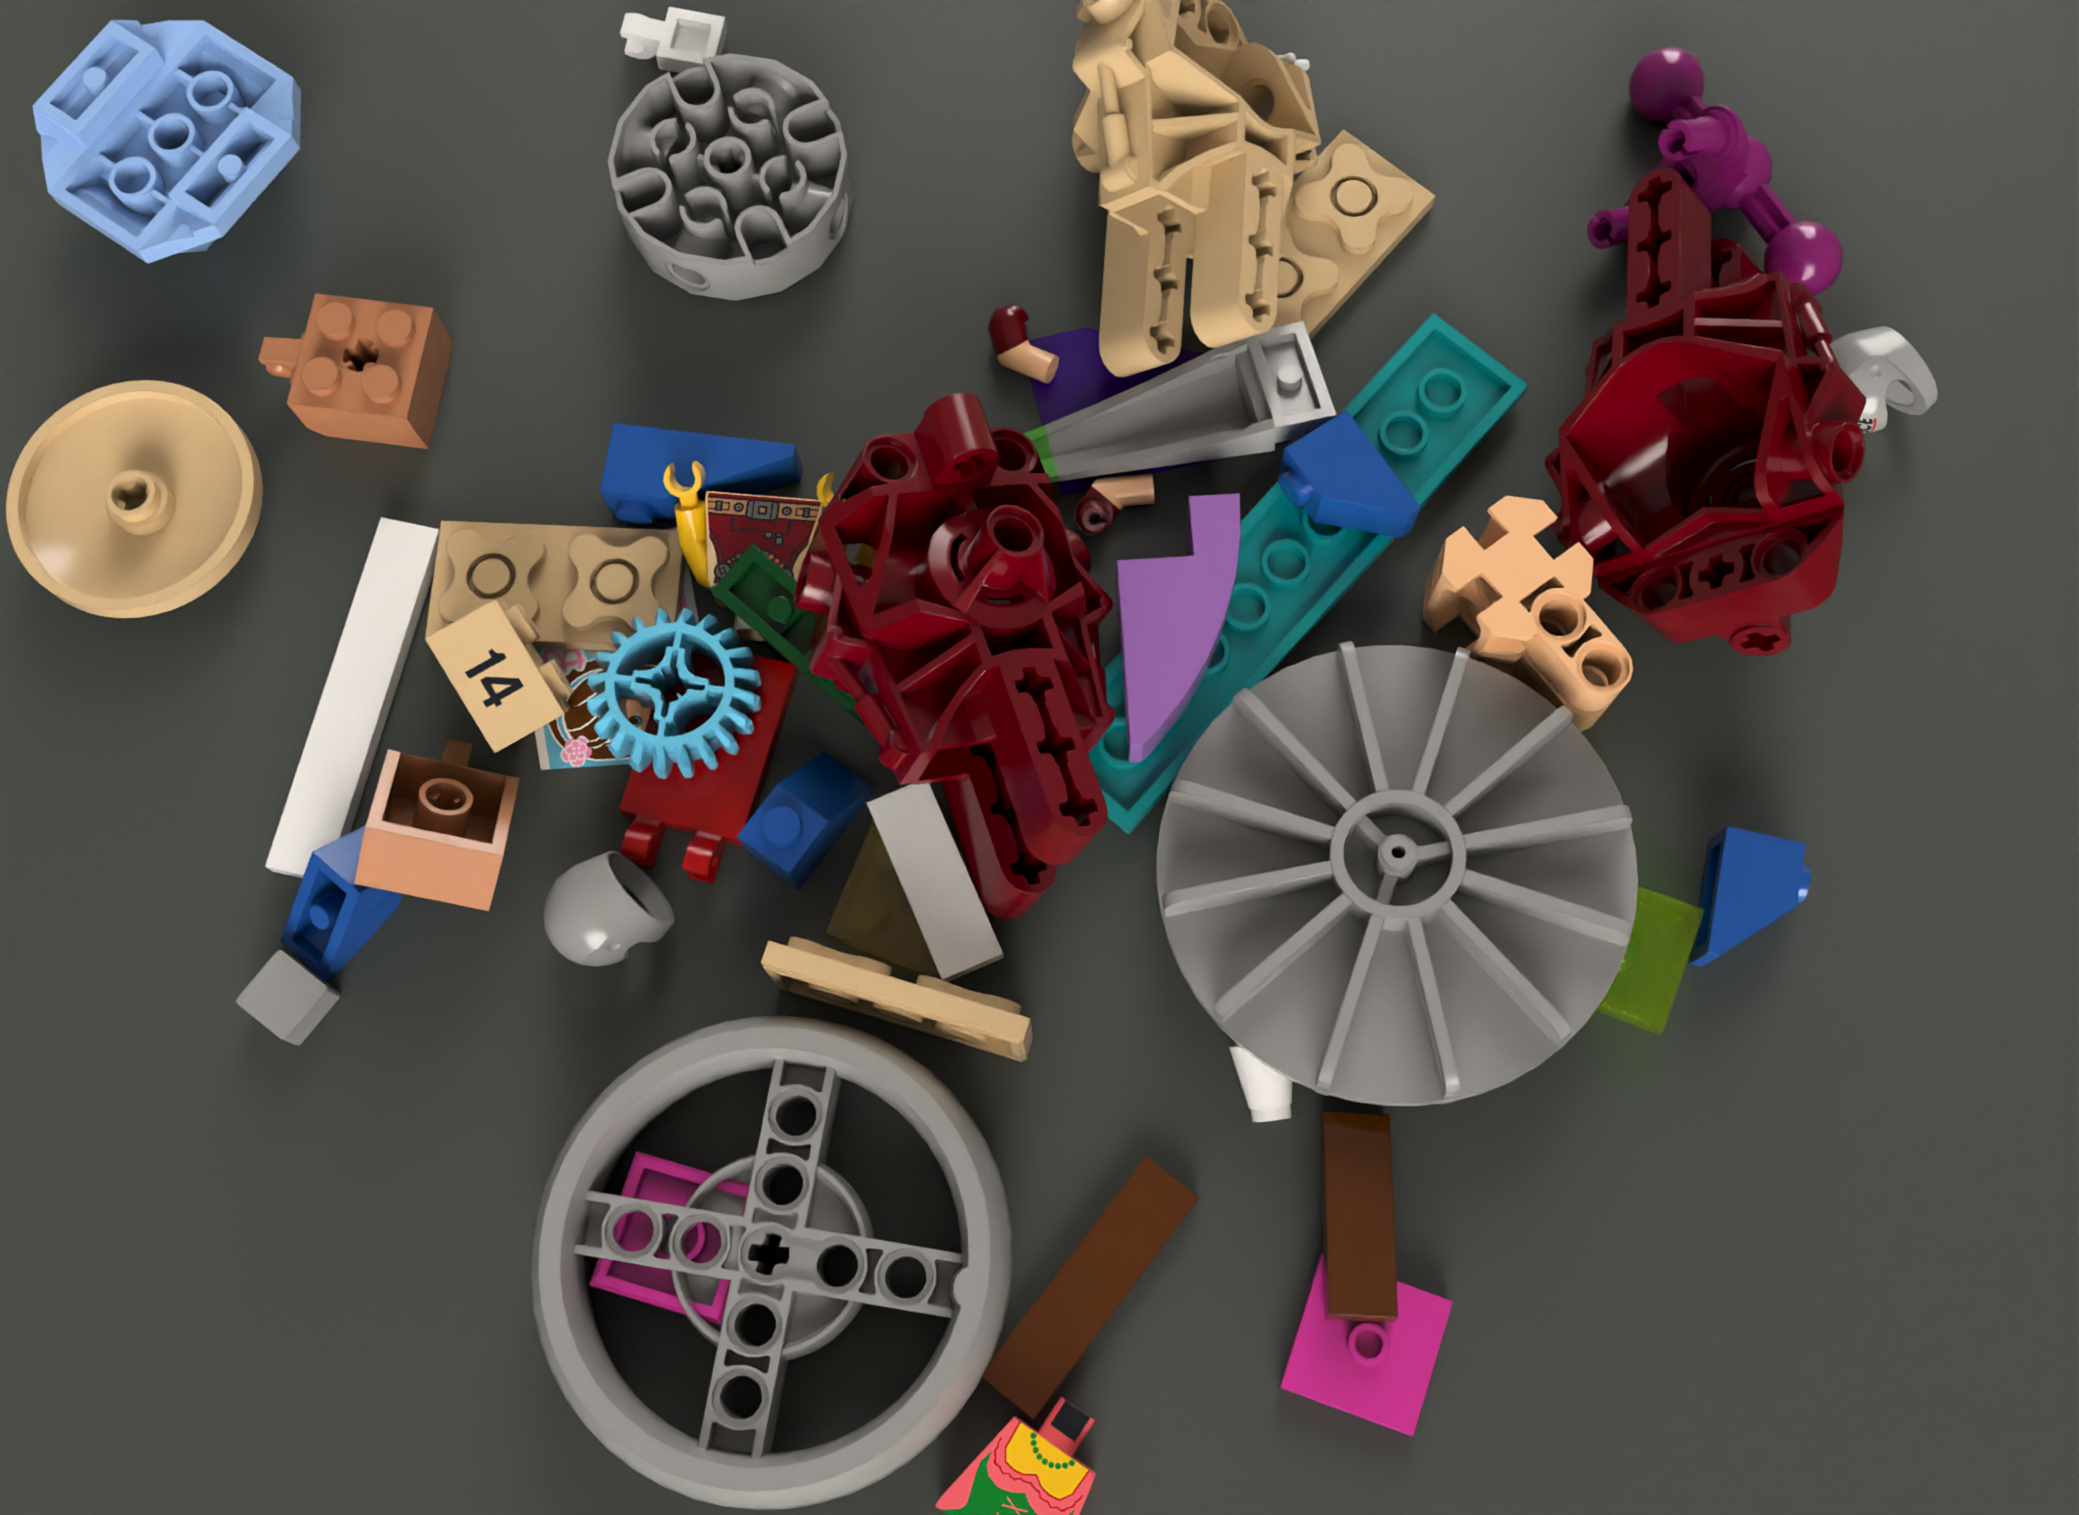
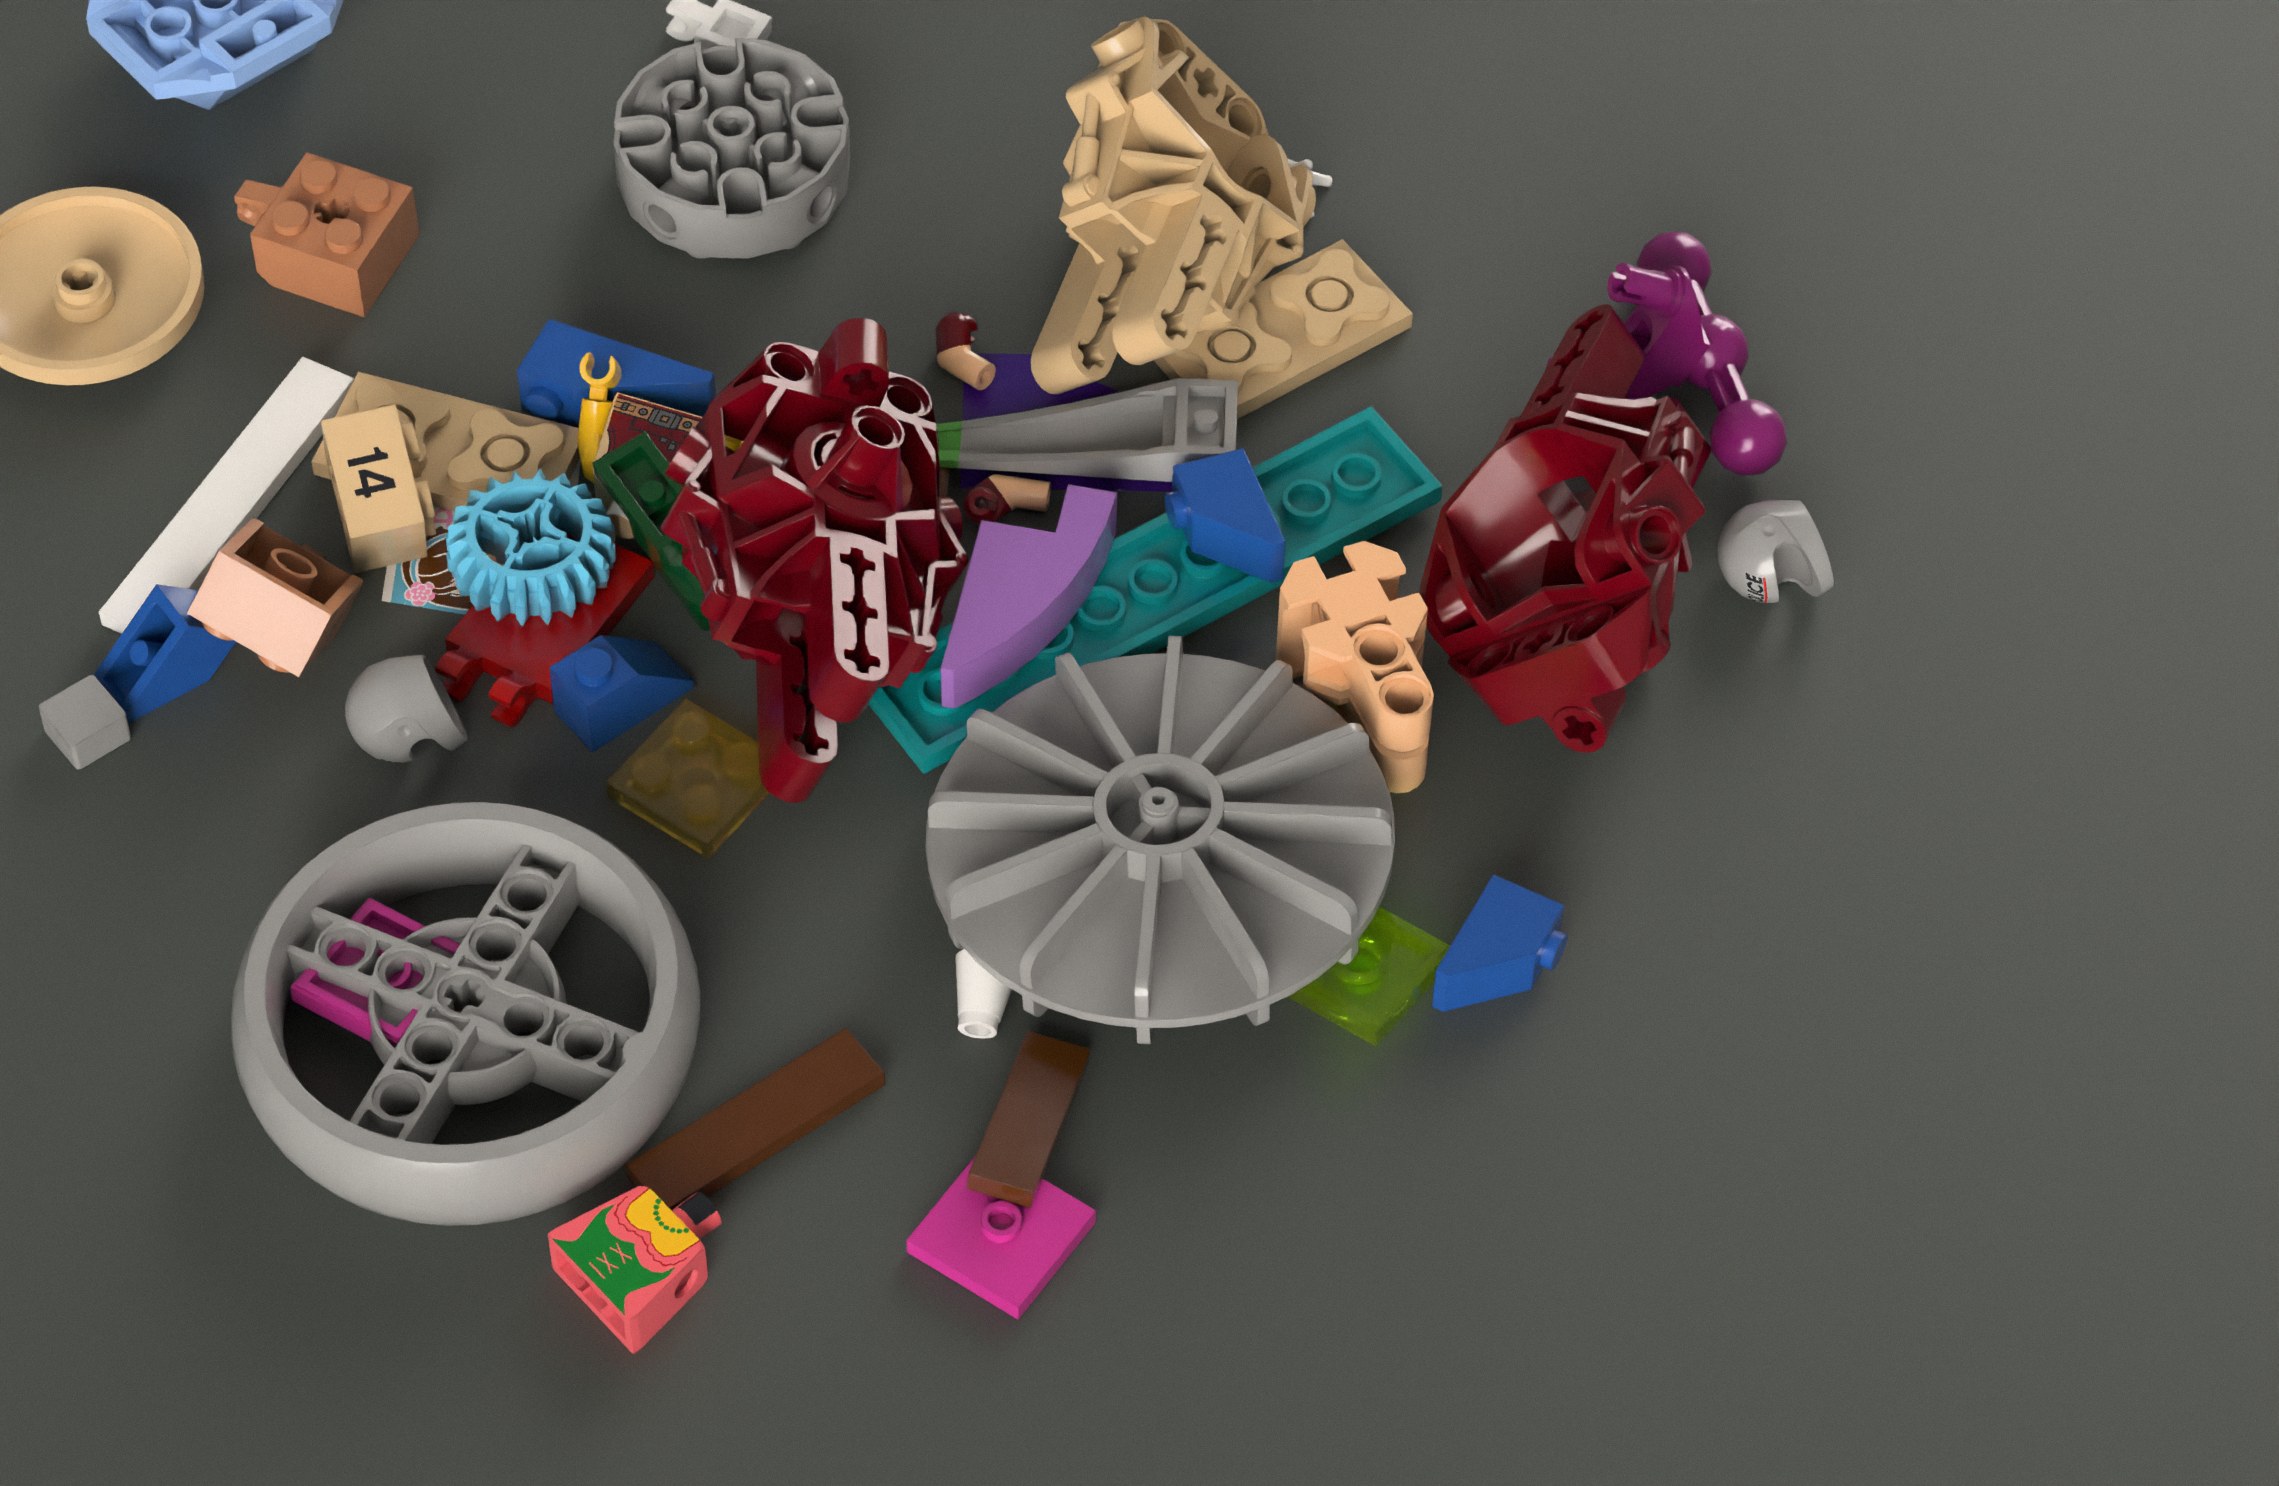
camera: 10 degrees right, 20 degrees down
(927, 1006) = (669, 839): tan piece -> none
(935, 881) = (723, 753): white tile -> none

